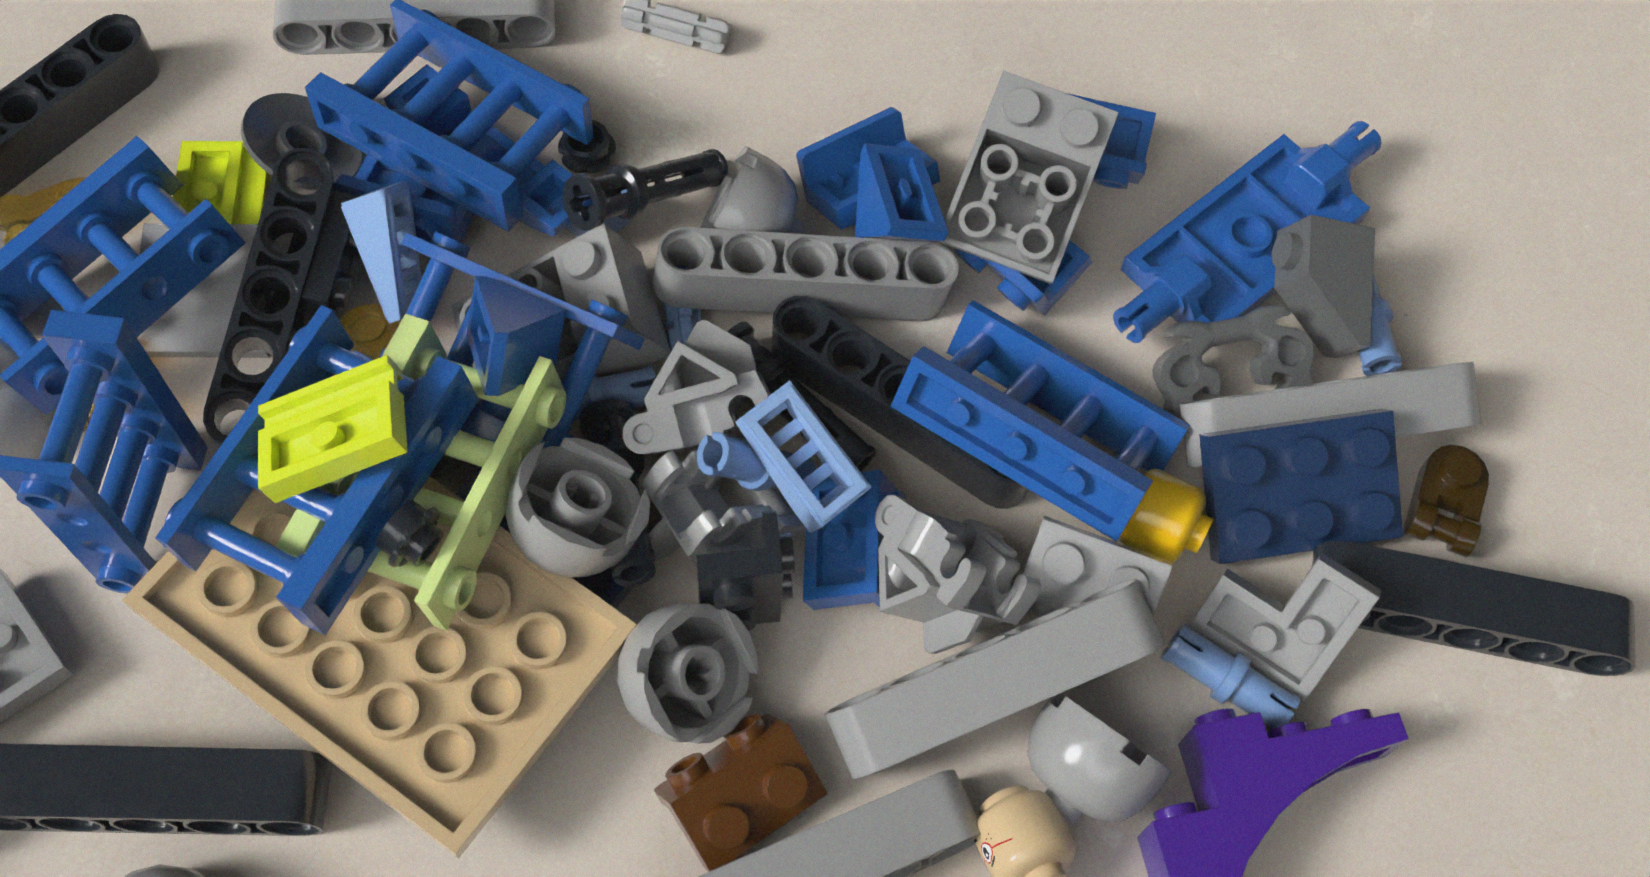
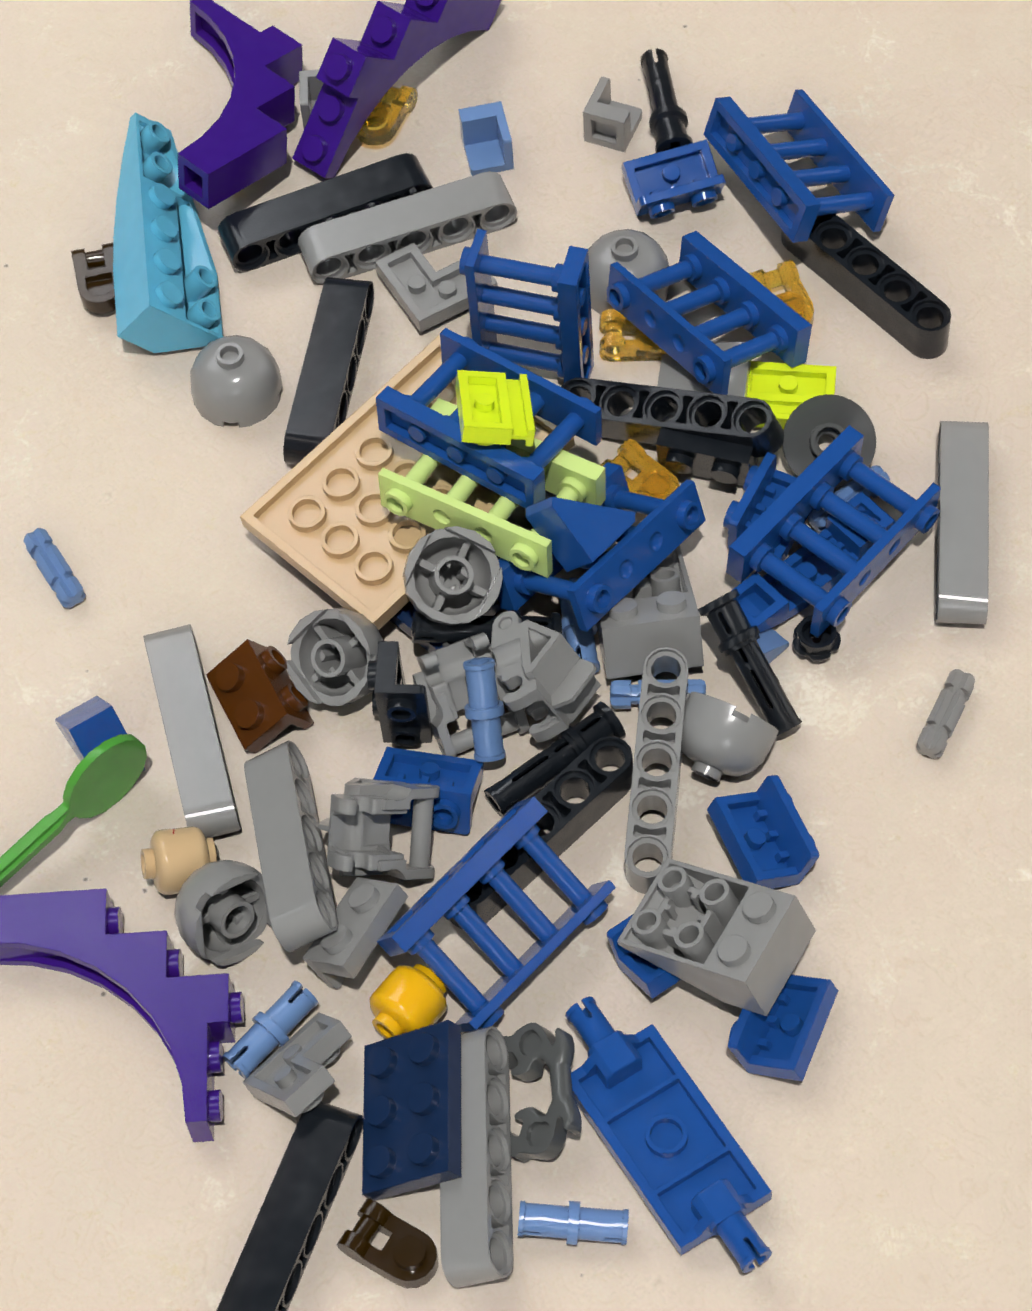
camera: 110 degrees right, 5 degrees down
(378, 227) = (719, 460): light blue slope -> none
(410, 535) = (428, 465): black plate -> none
(834, 460) = (448, 726): light blue slope -> none
(897, 196) = (708, 833): blue slope -> none
(1327, 281) = (600, 1171): dark grey slope -> none

